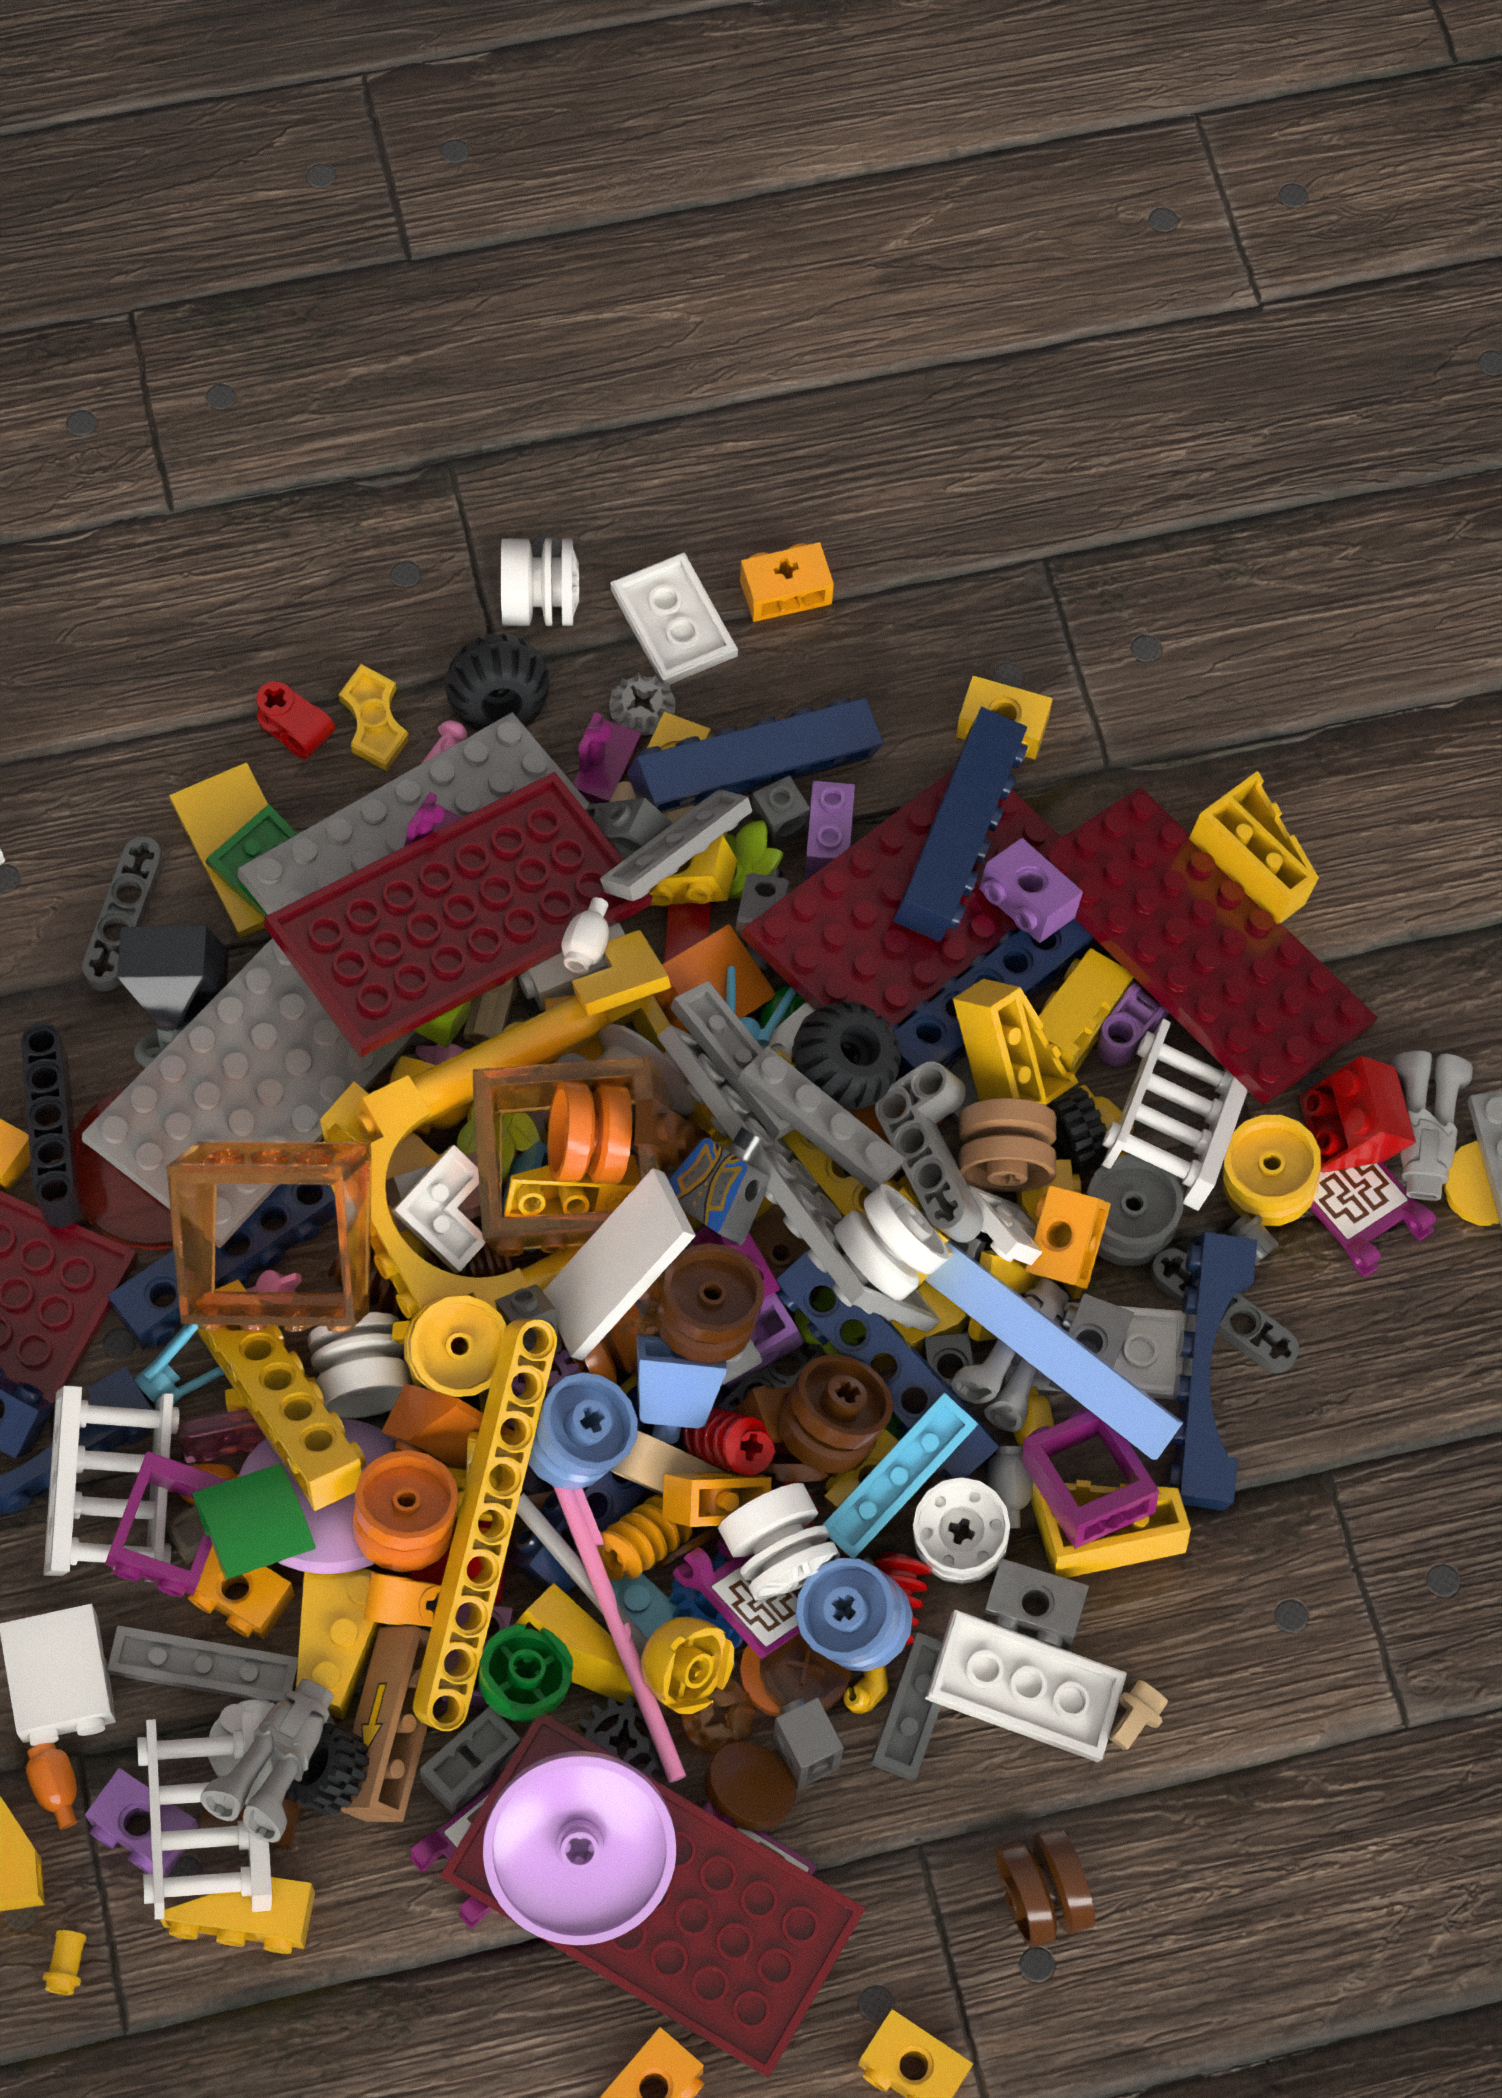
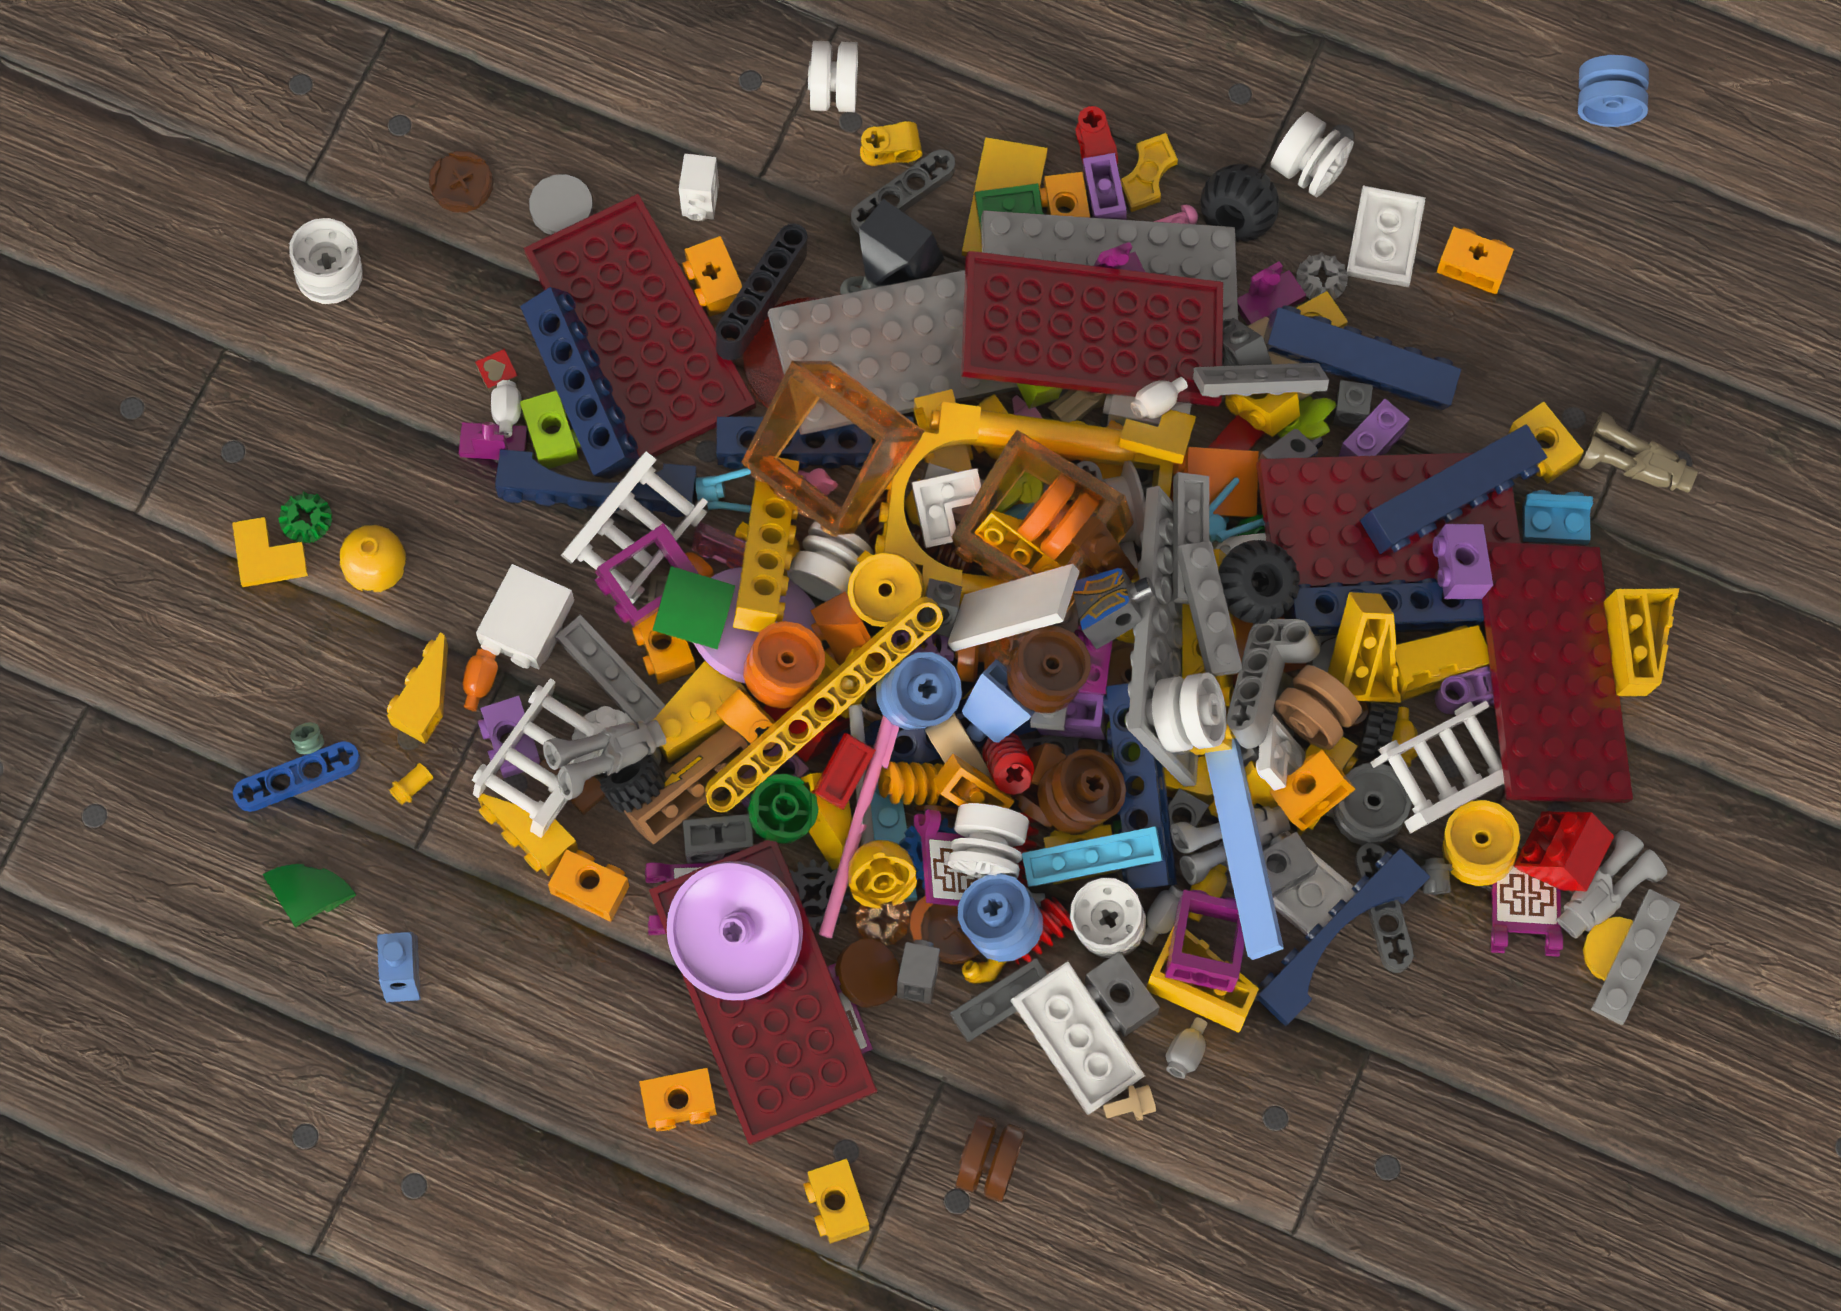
camera: 40 degrees right, 5 degrees up
(71, 870) = (893, 144): none -> yellow piece
(304, 793) = (1065, 191): none -> light orange brick
(344, 761) = (1104, 187): none -> medium lavender brick
(389, 1932) = (602, 899): none -> light orange brick
(560, 1580) = (843, 771): none -> red tile
(792, 319) = (1613, 90): none -> medium blue wheel
(1074, 786) = (1557, 518): none -> dark azure bracket
(1126, 664) = (1651, 464): none -> dark tan piece
(1147, 1611) = (1187, 1049): none -> light grey plant

